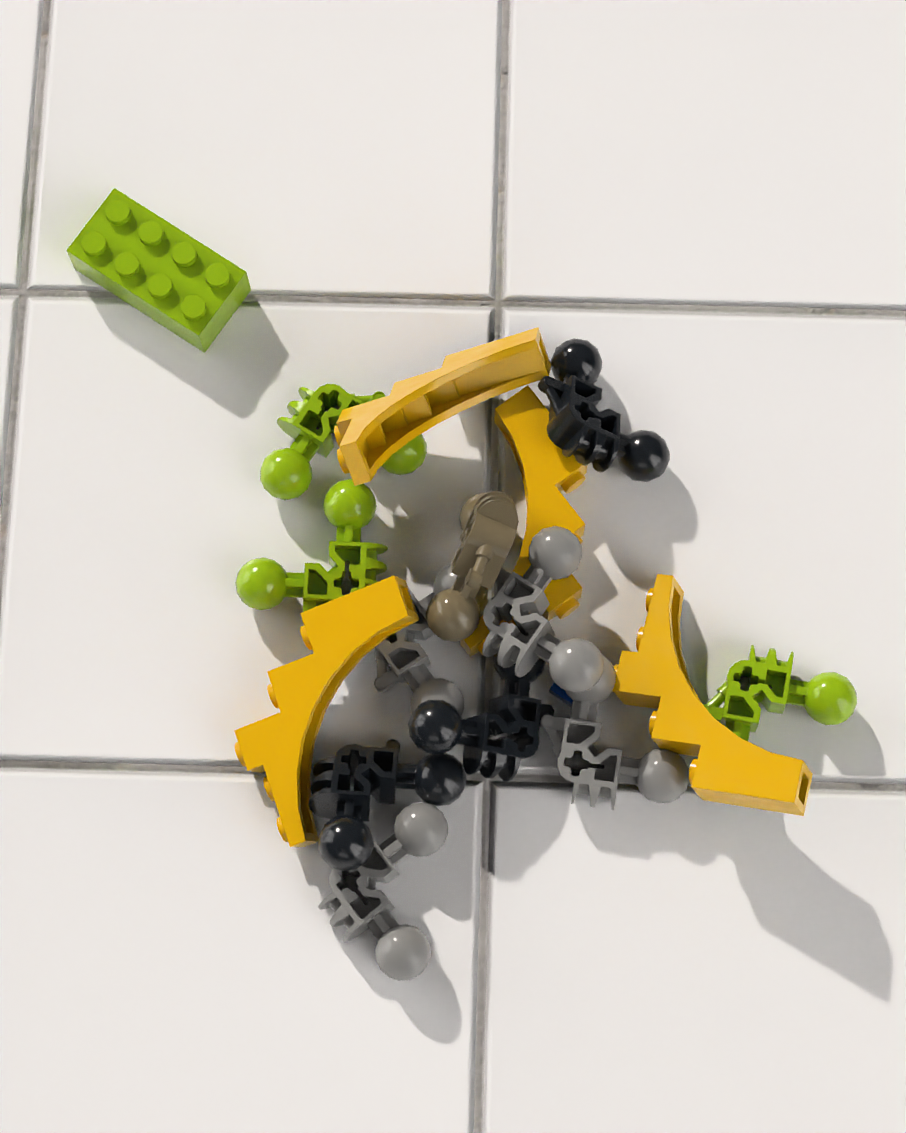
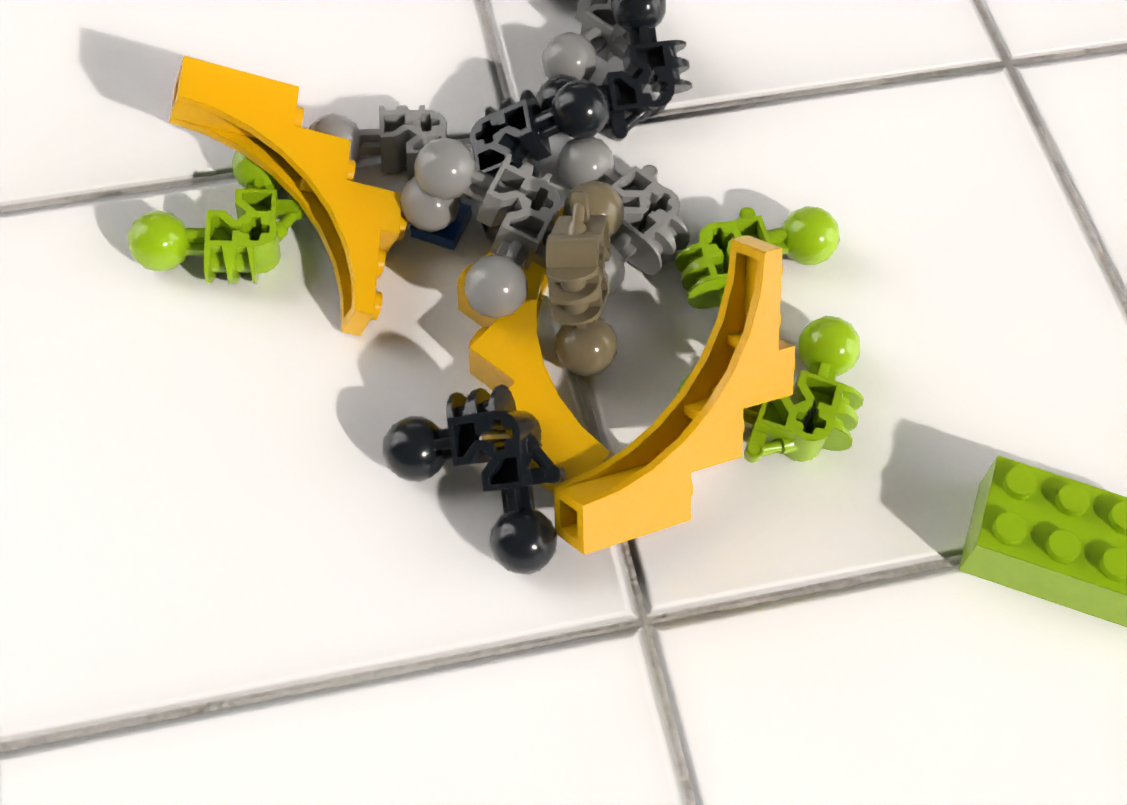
camera: 160 degrees right, 15 degrees down
(302, 690) = (716, 171): yellow arch -> none

